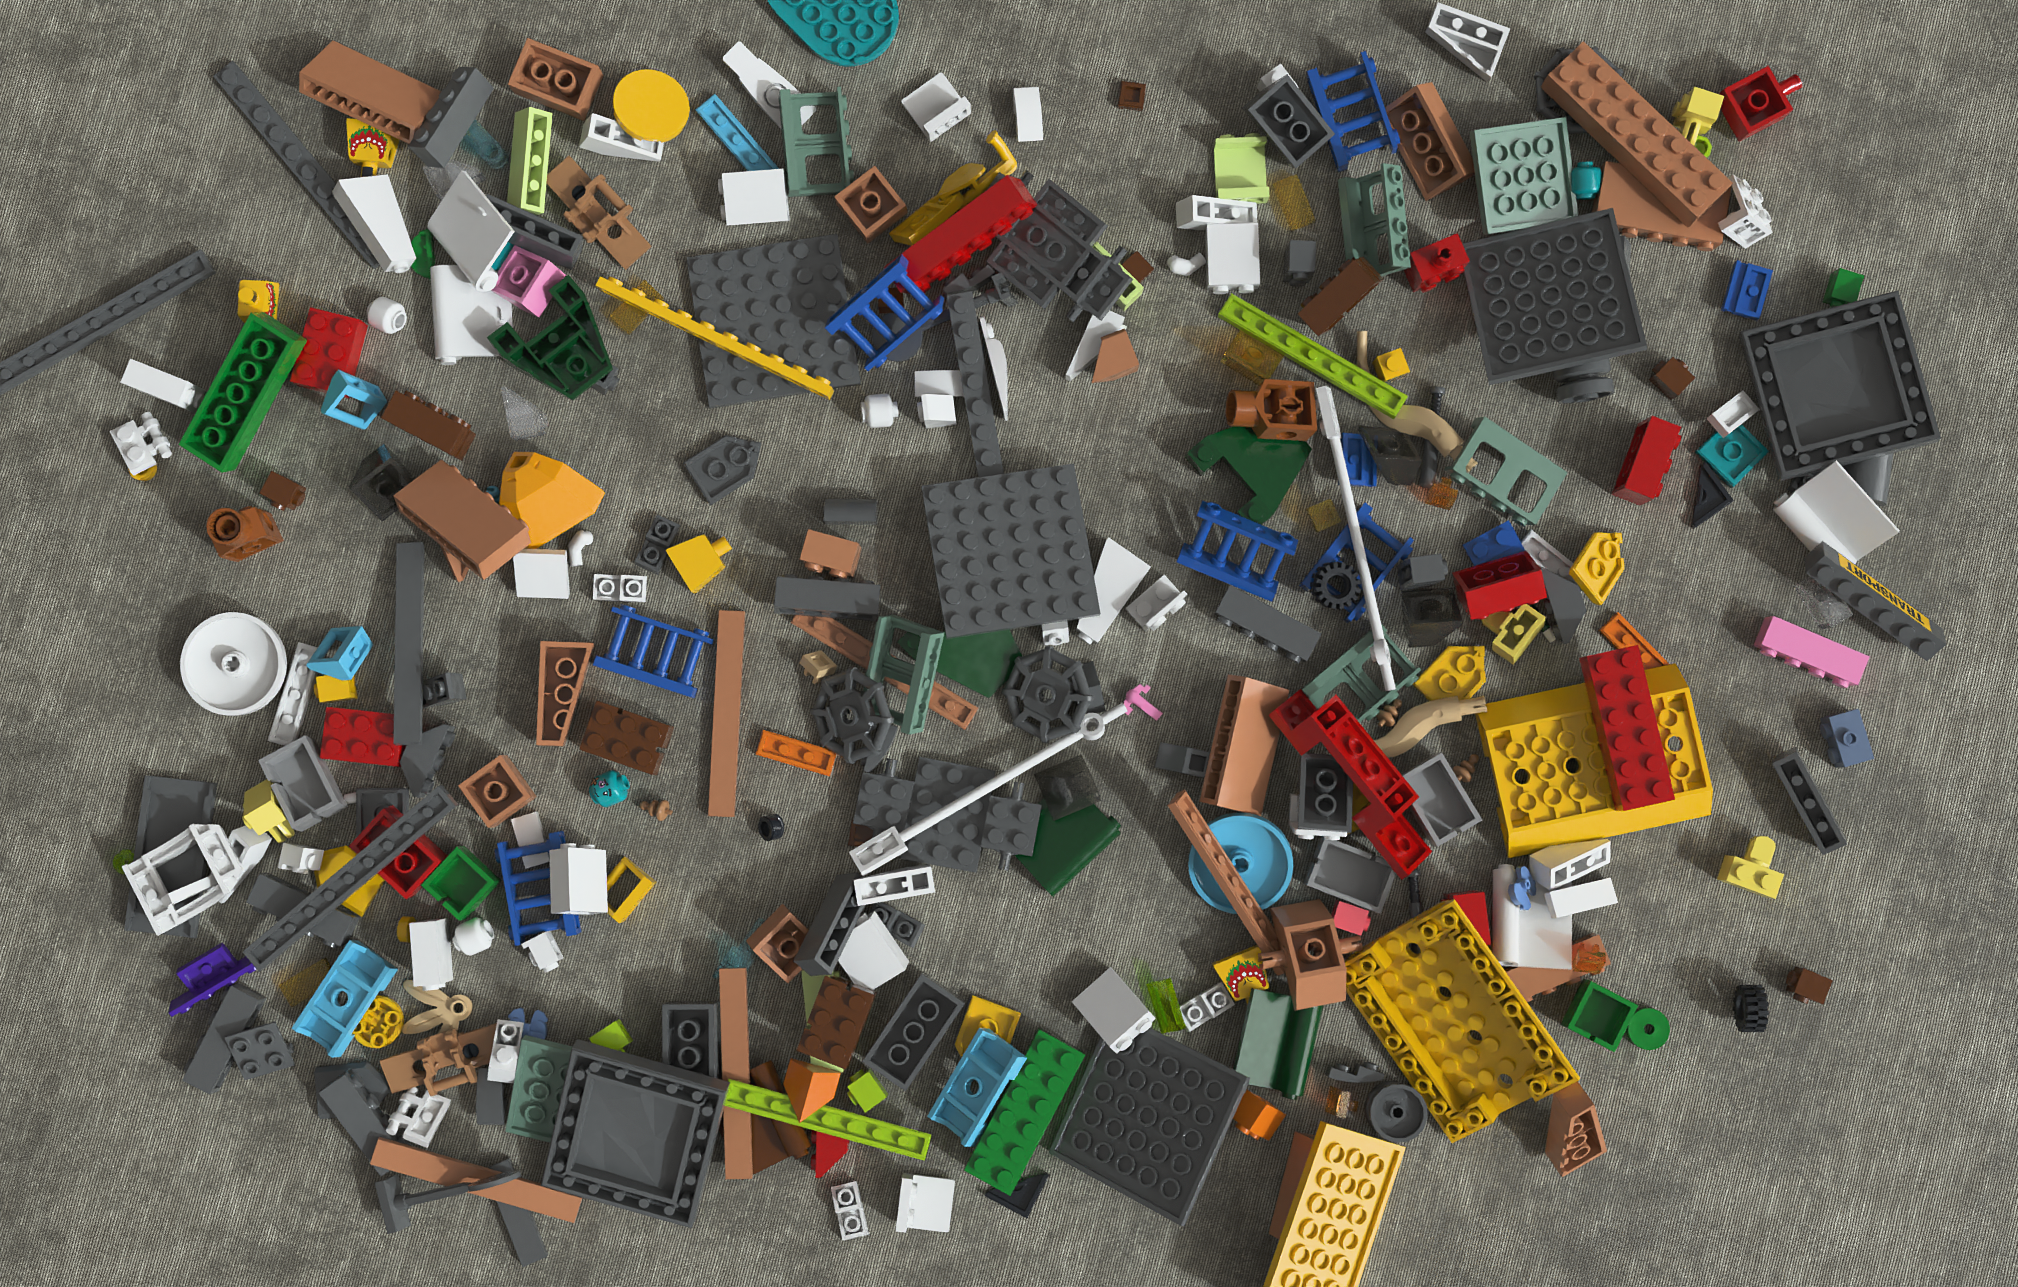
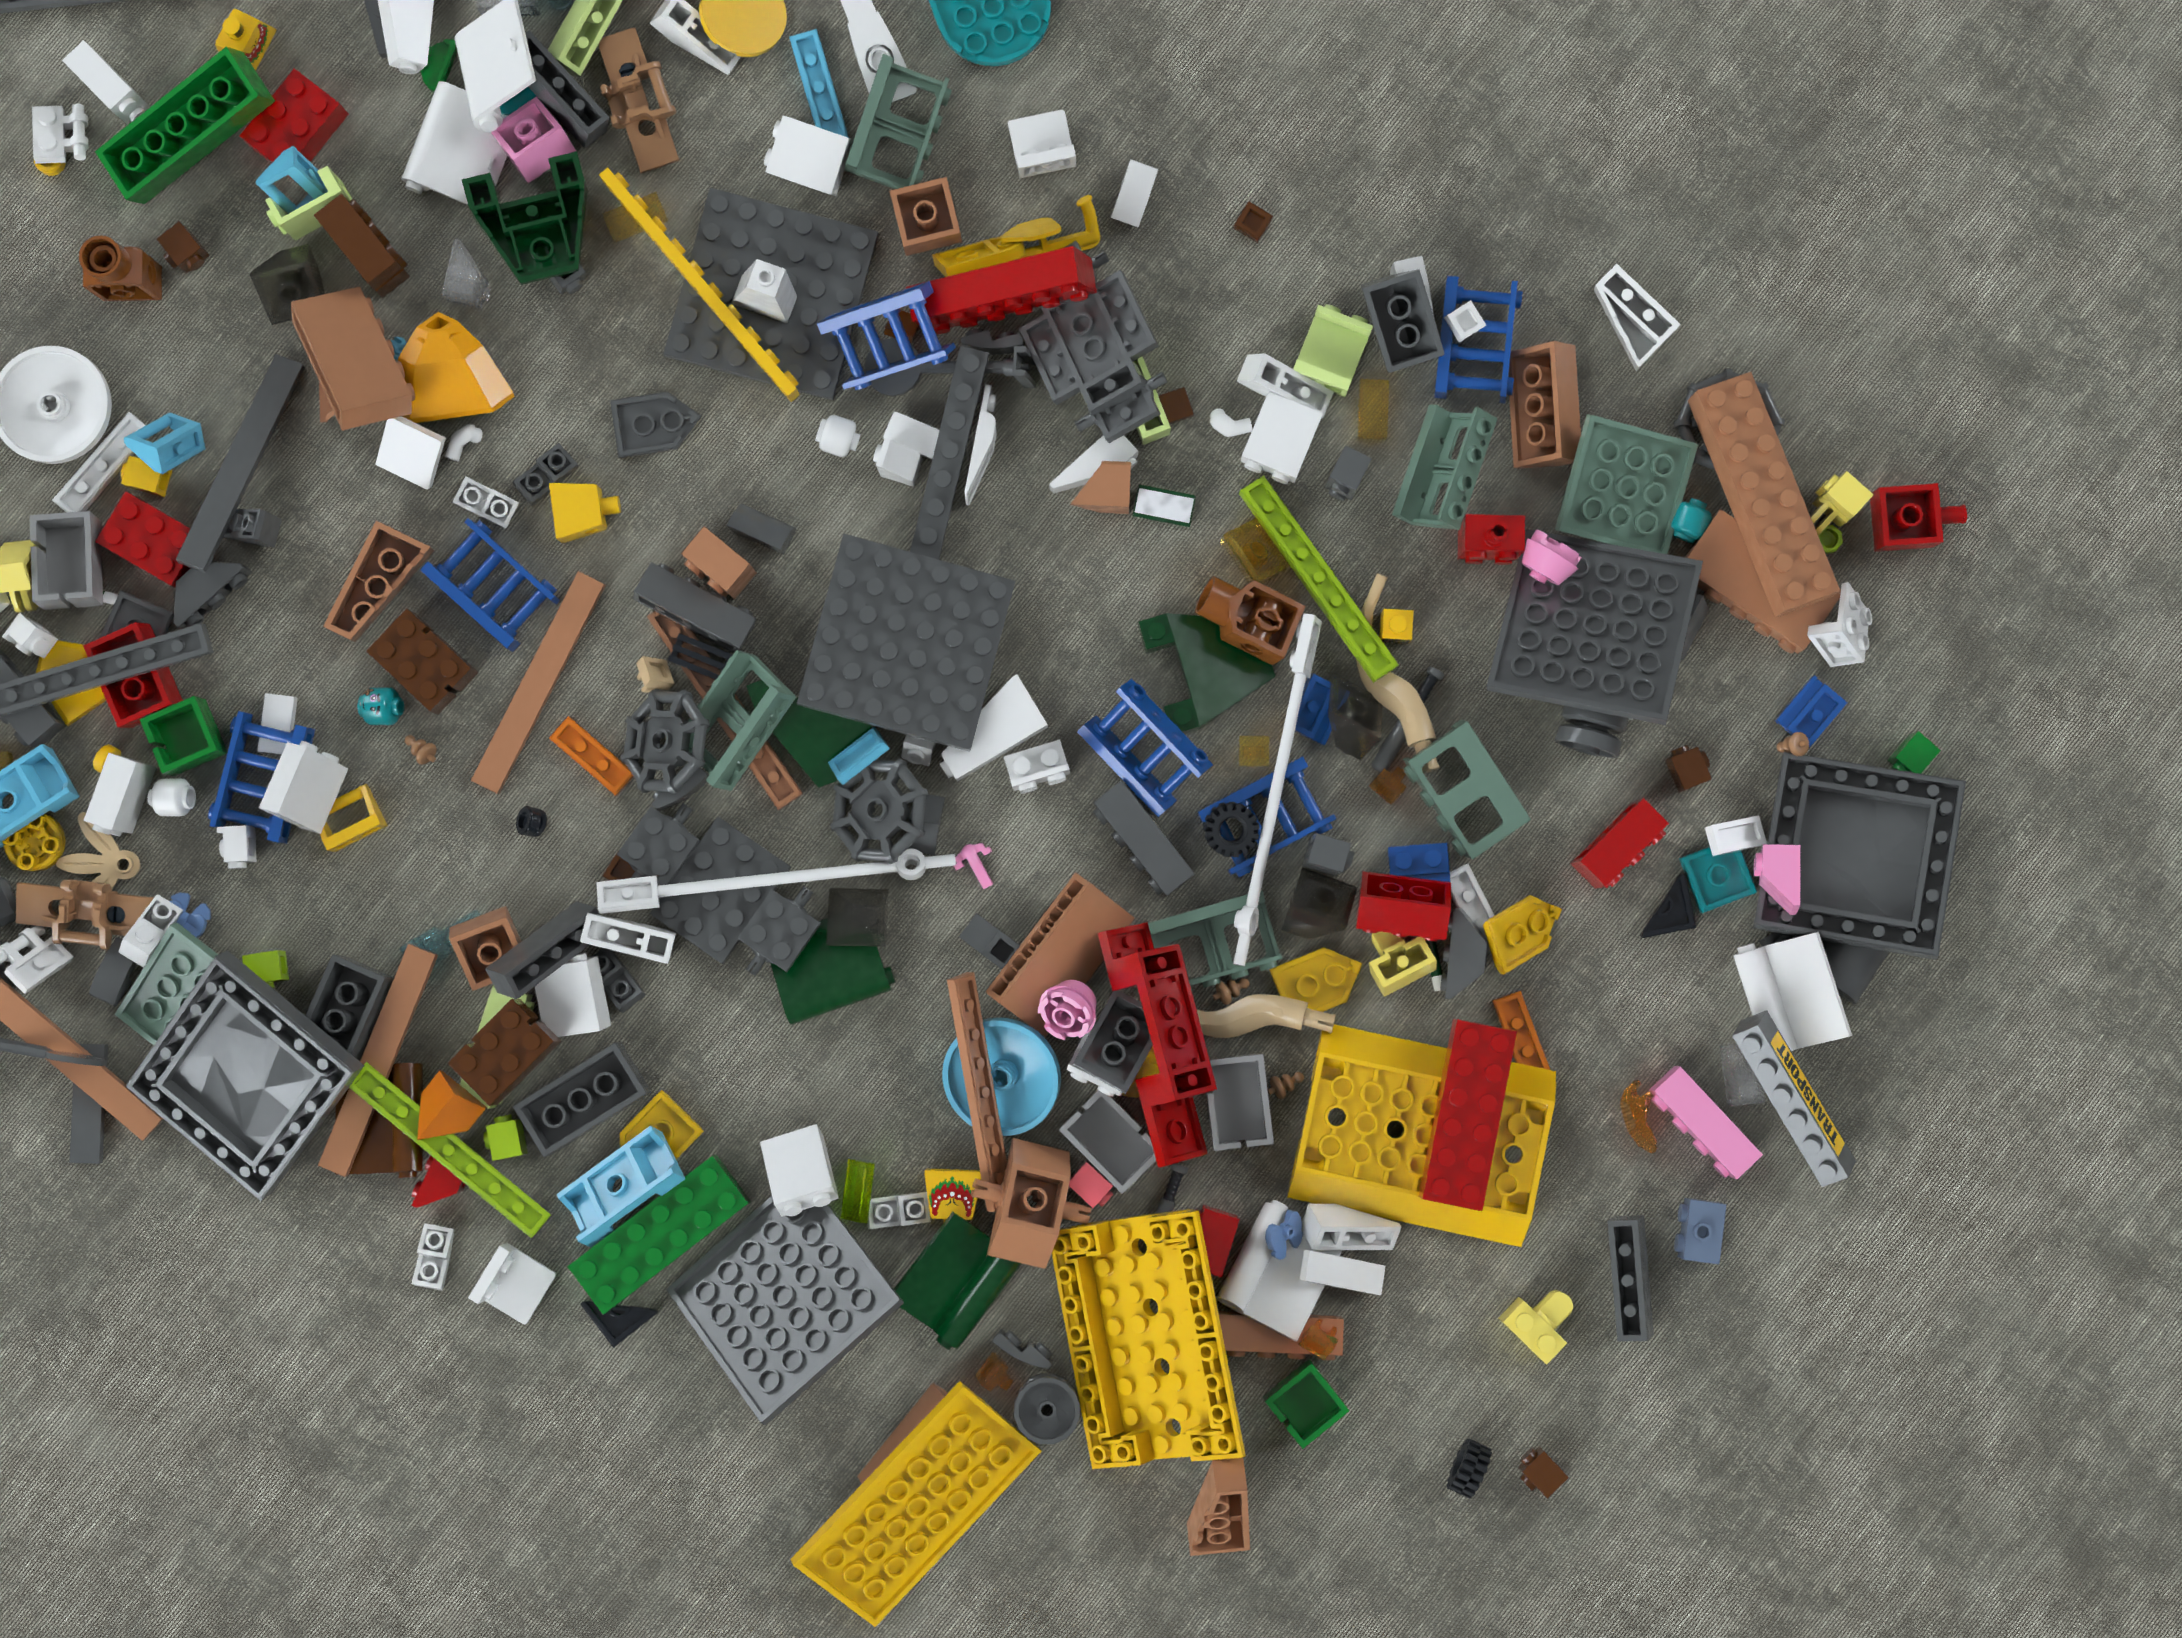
camera: 25 degrees right, 0 degrees up
(373, 423) = (302, 220): none -> yellowish green panel
(386, 315) = (371, 111): white head -> none
(497, 791) = (263, 657): nougat brick -> none
(771, 319) = (766, 291): none -> white slope
(827, 646) = (677, 648): none -> black tile
(1011, 658) = (858, 755): none -> medium azure tile
(1163, 352) = (1164, 505): none -> flat silver slope
(1257, 1116) = (898, 1347): orange brick -> none
(1273, 785) = (1068, 1009): none -> bright pink cone
(1338, 100) = (1464, 321): none -> white tile
(1339, 295) = (1377, 524): reddish brown piece -> none
(1492, 259) = (1549, 559): none -> bright pink cone
(1656, 1037) = (1356, 1455): green piece -> none
(1748, 320) = (1795, 744): none -> medium nougat hair
(1751, 668) = (1635, 1117): none -> clear orange piece
(1788, 428) = (1780, 874): none -> bright pink slope

